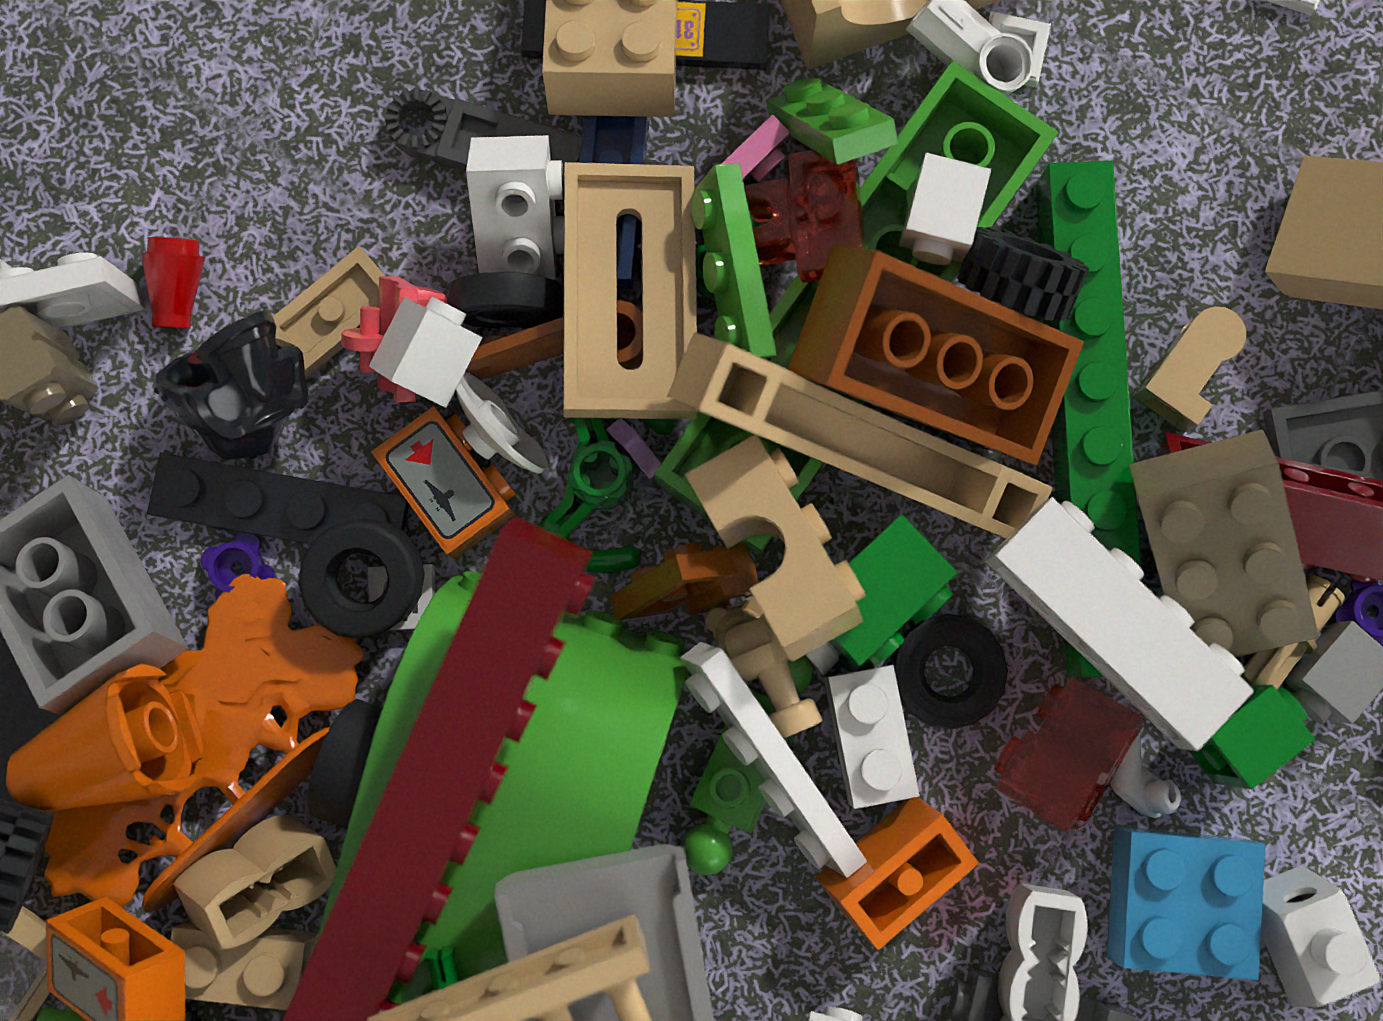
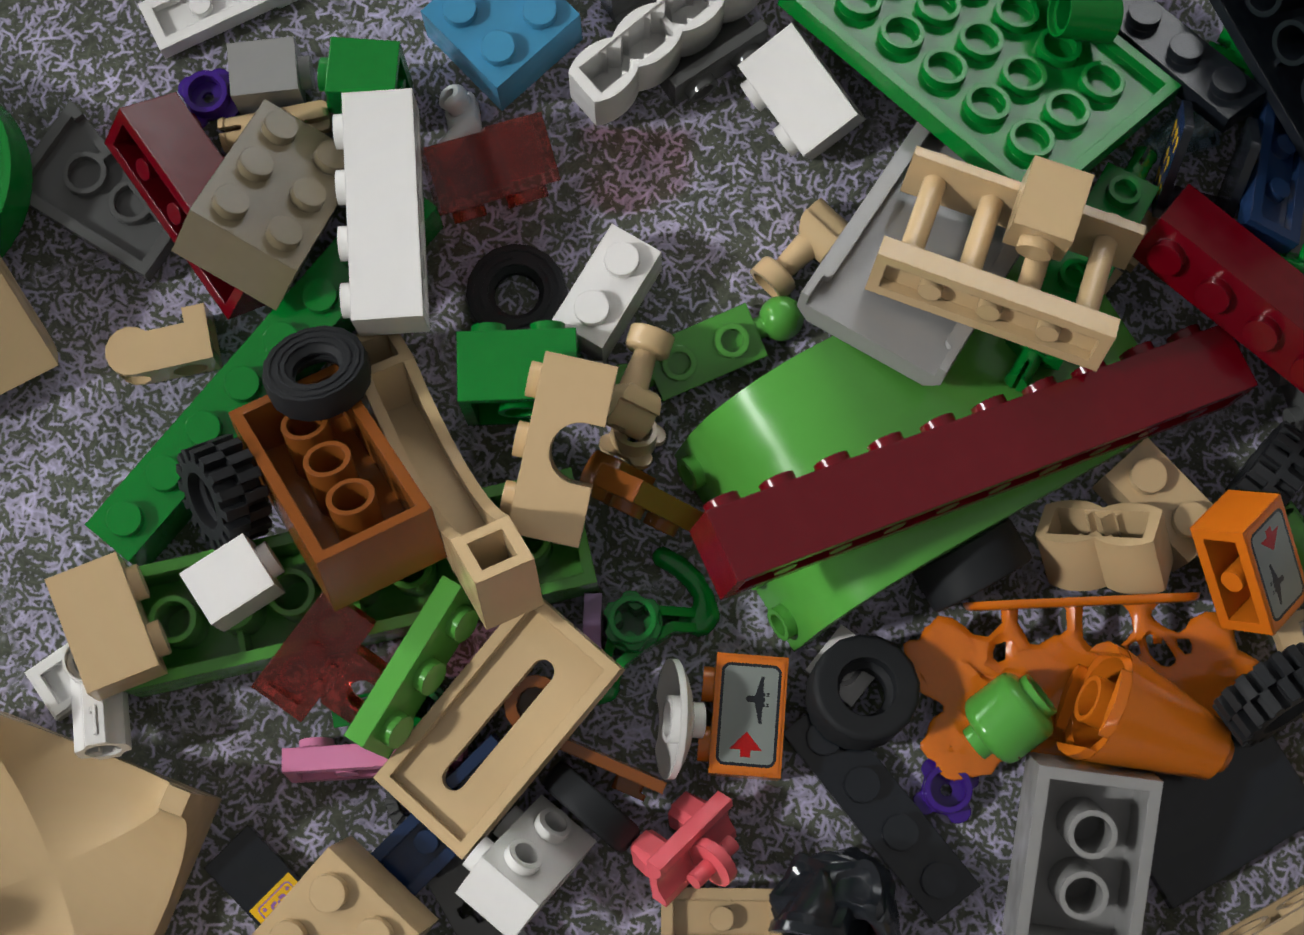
camera: 140 degrees left, 5 degrees down
(220, 660) = (1009, 717): none -> bright green head
(426, 349) = (679, 808): white brick -> none
(737, 952) = (816, 235): none -> tan leg
(757, 741) = (686, 343): white plate -> none
(832, 121) = (248, 722): bright green plate -> none
(908, 867) = (669, 194): orange brick -> none
(1010, 88) = (108, 625): none -> tan brick
(1075, 442) = (324, 398): none -> black tyre

